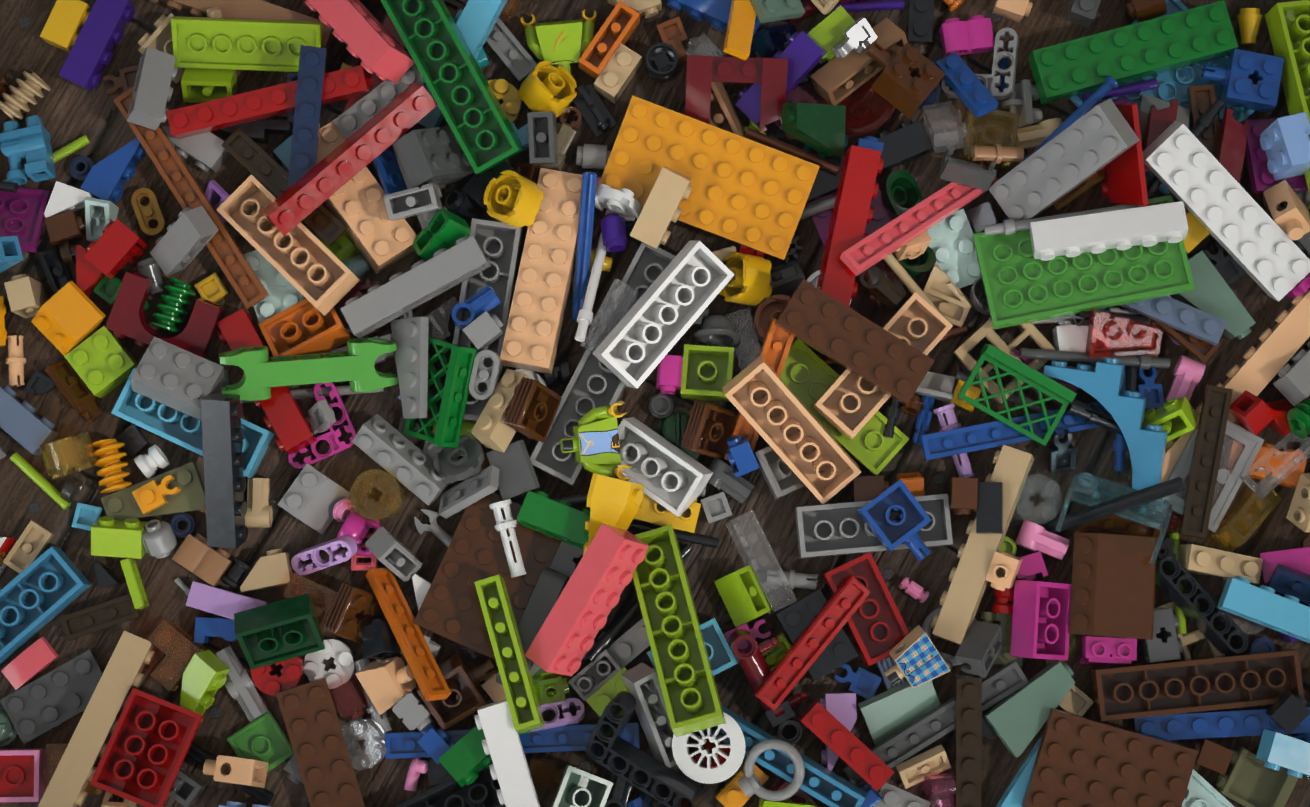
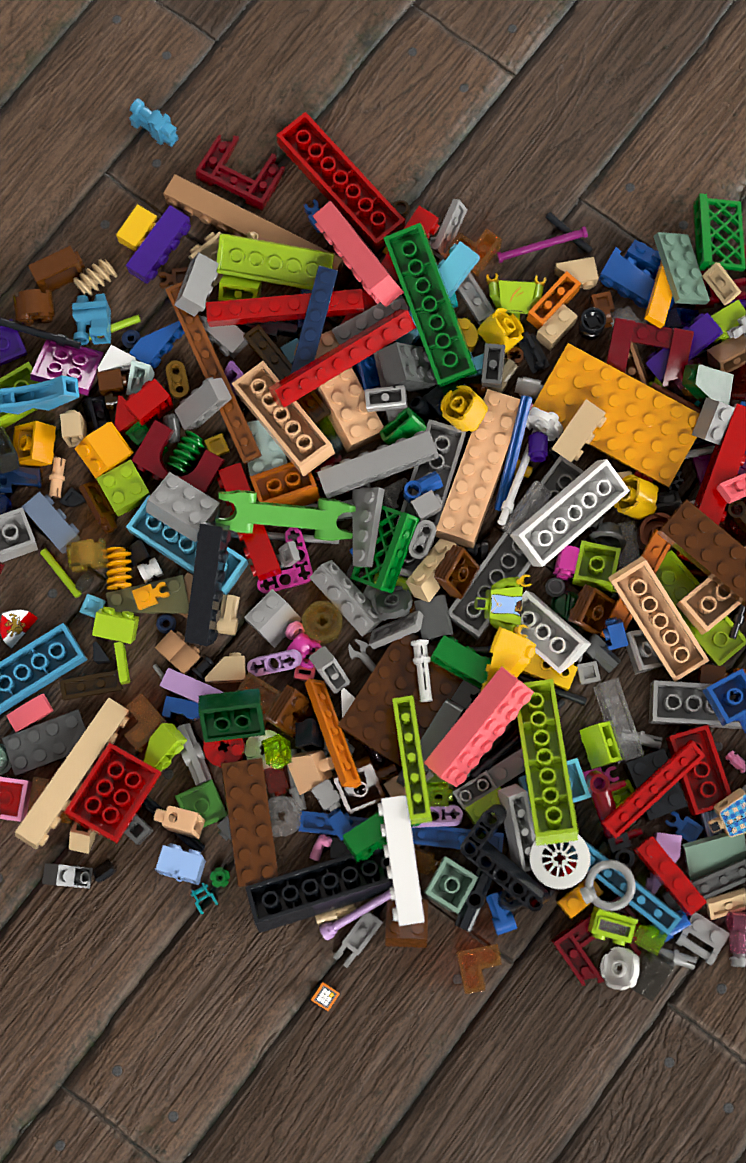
camera: 10 degrees right, 5 degrees down
(28, 547) = (43, 622): tan plate -> none
(158, 539) = (146, 630): light grey head -> none
(343, 666) = (277, 751): none -> clear neon green brick
(826, 171) = (713, 421): none -> light grey brick

